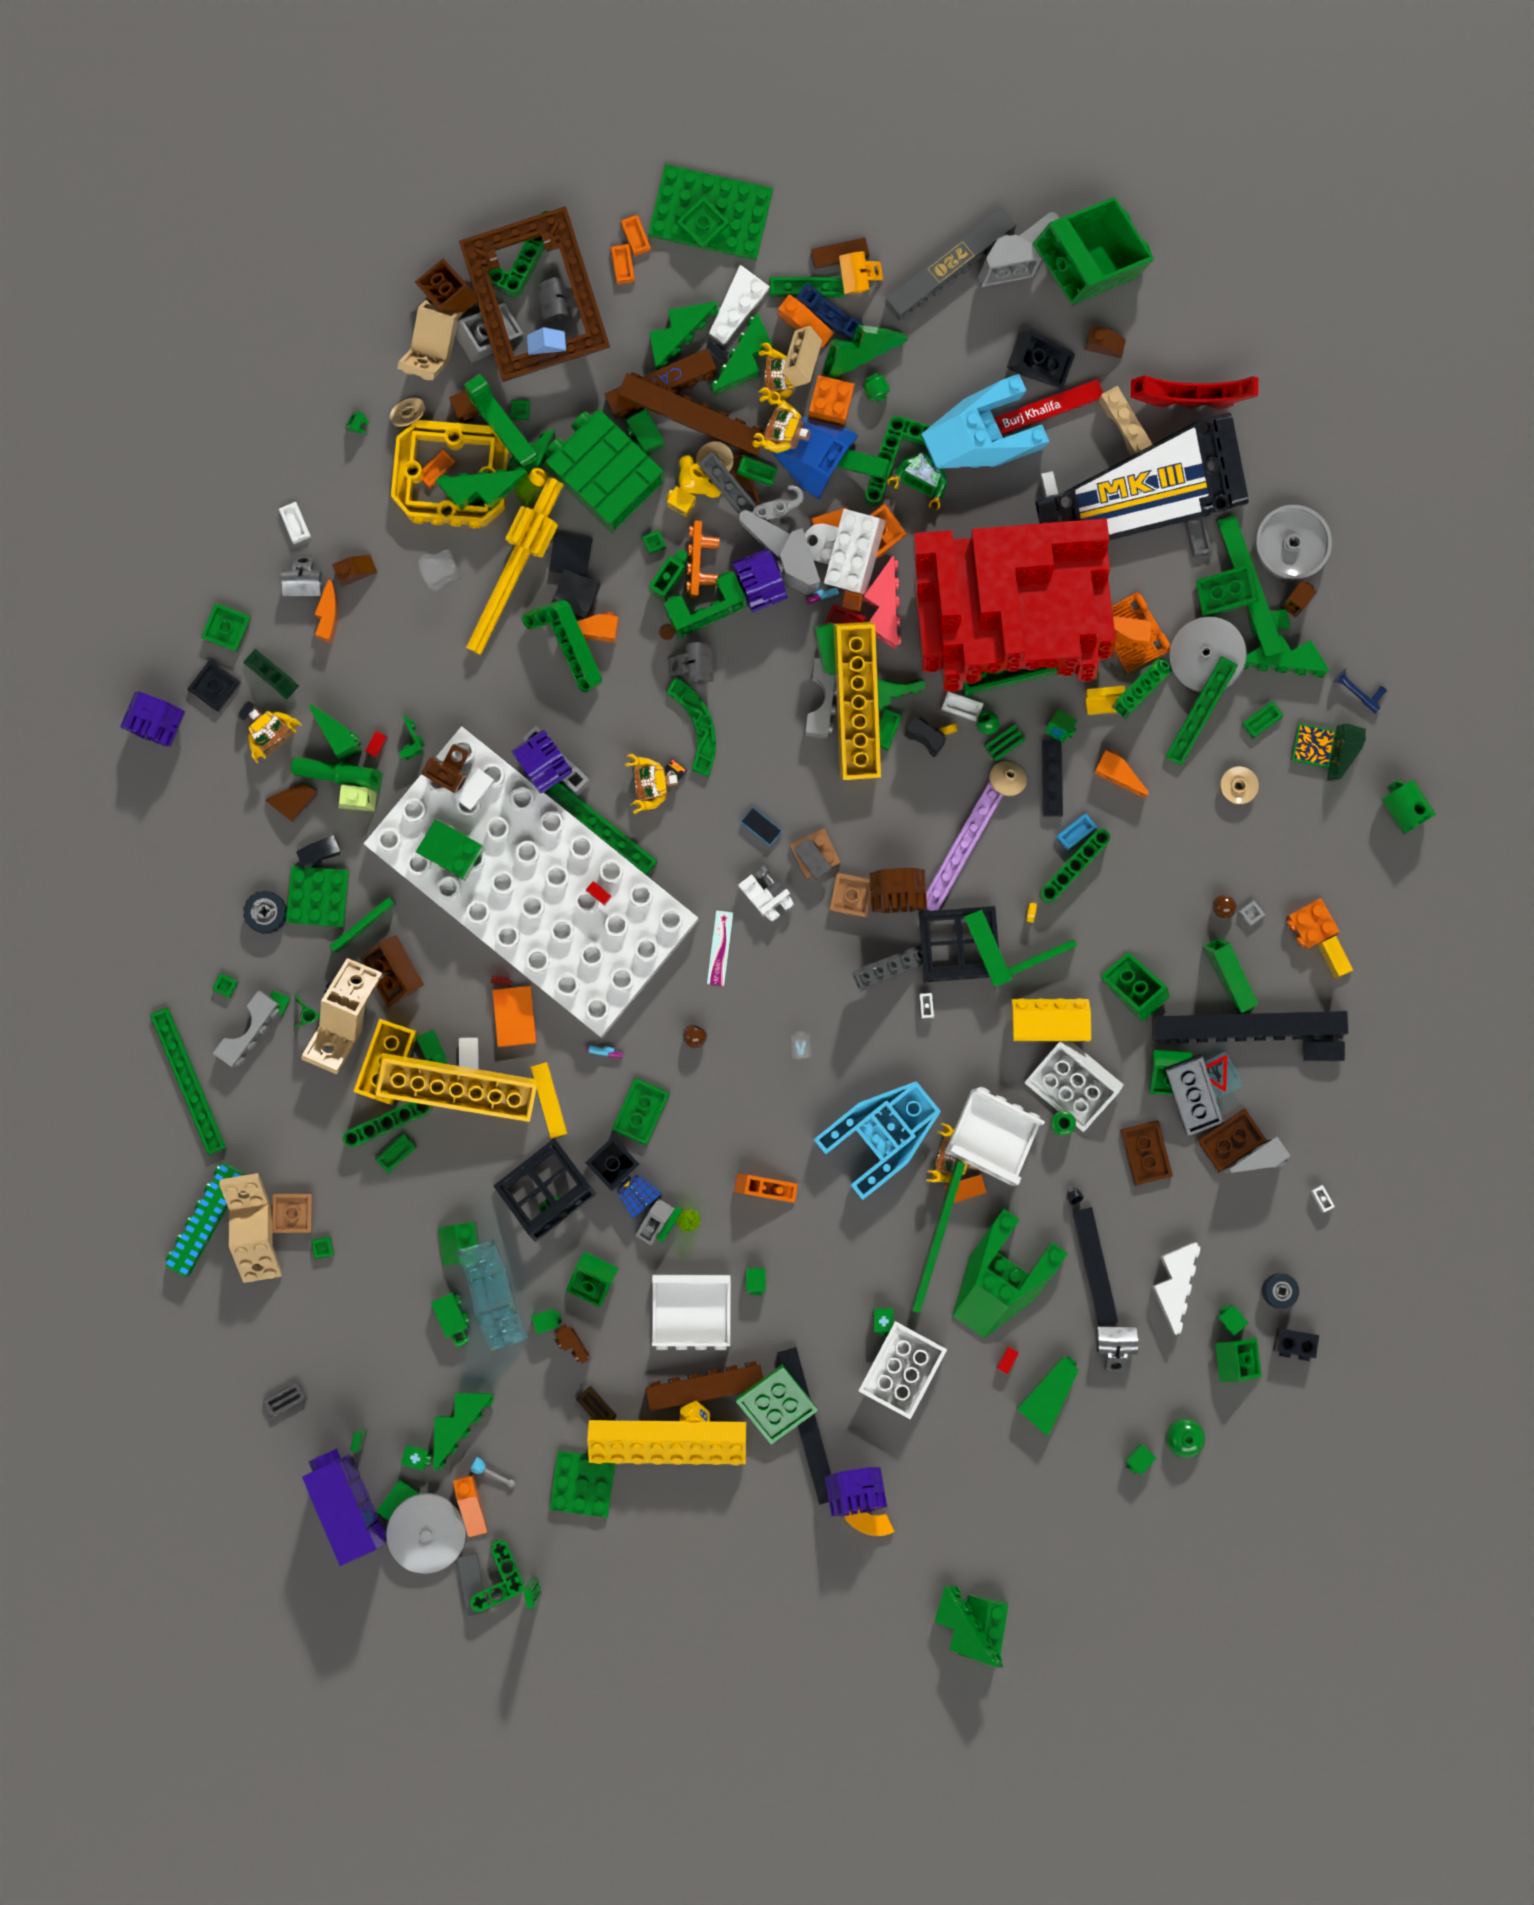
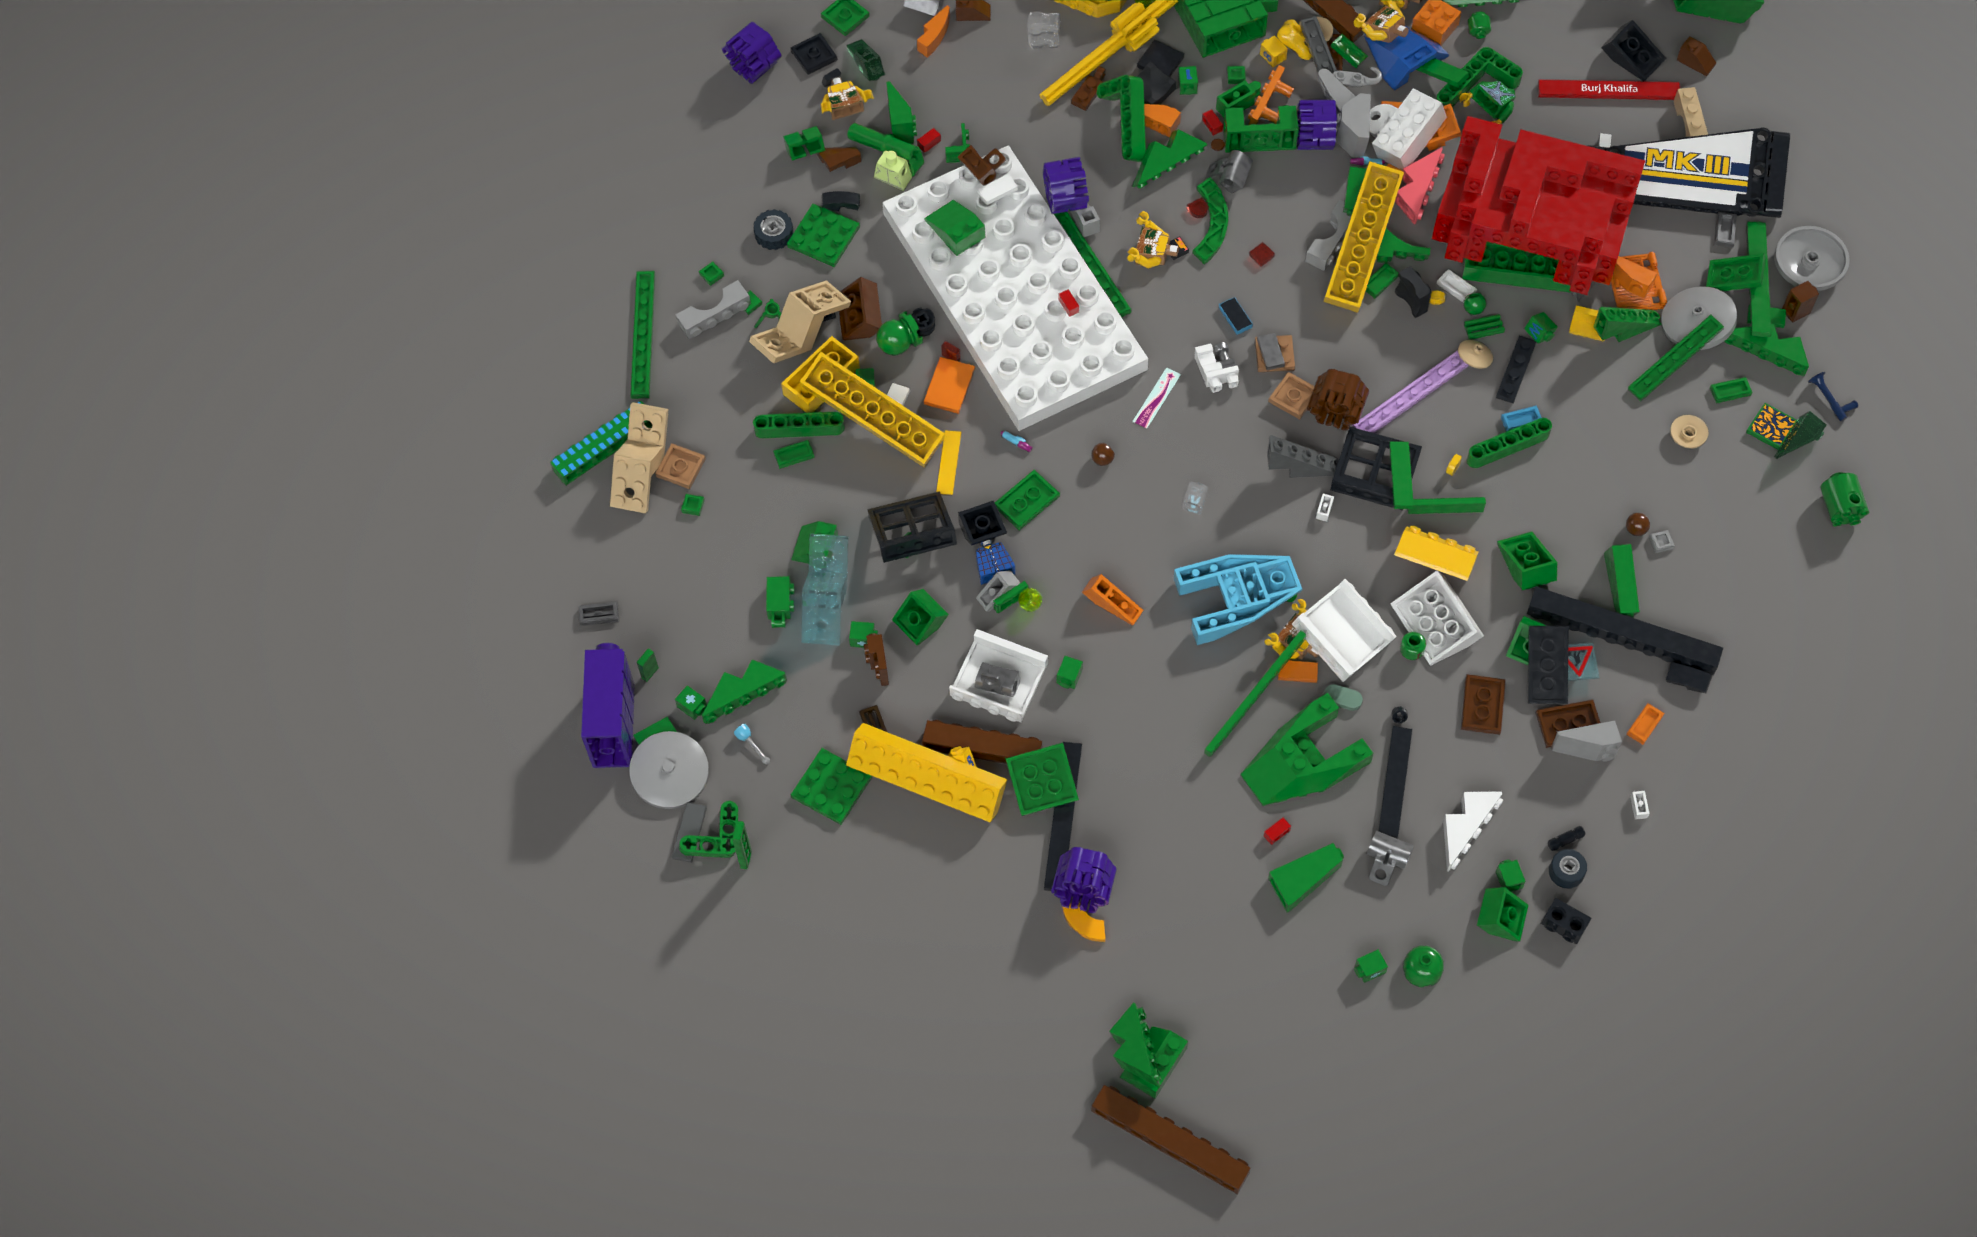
camera: 25 degrees right, 20 degrees down
(242, 802) = (810, 137): none -> green piece
(362, 925) = (852, 267): green tile -> none
(442, 989) = (897, 335): none -> green tile
(458, 958) = (925, 320): none -> black wheel
(470, 1505) = (720, 761): orange slope -> none
(512, 620) = (1087, 91): none -> reddish brown plate
(609, 571) = (1188, 80): none -> green brick
(619, 678) = (1161, 157): none -> green slope
(652, 610) = (1212, 122): none -> red piece
(677, 716) = (1198, 208): none -> clear red tile
(693, 1320) = (997, 680): none -> flat silver piece
(760, 745) = (1262, 254): none -> clear red tile
(883, 1320) = (1173, 751): green brick -> none
(902, 1370) = (1174, 797): white slope -> none
(971, 437) = (1552, 83): medium azure wedge -> none
(1016, 1199) = (1345, 697): none -> sand green tile
(1026, 1696) = (1171, 1139): none -> reddish brown brick
(1118, 772) = (1578, 382): orange slope -> none
(1192, 395) = (1735, 107): red arch -> none
(1268, 1259) = (1566, 838): none -> black axle
(1299, 1112) = (1645, 724): none -> orange tile
(1312, 924) = (1716, 569): orange plate -> none
(1335, 957) = (1728, 604): yellow panel -> none

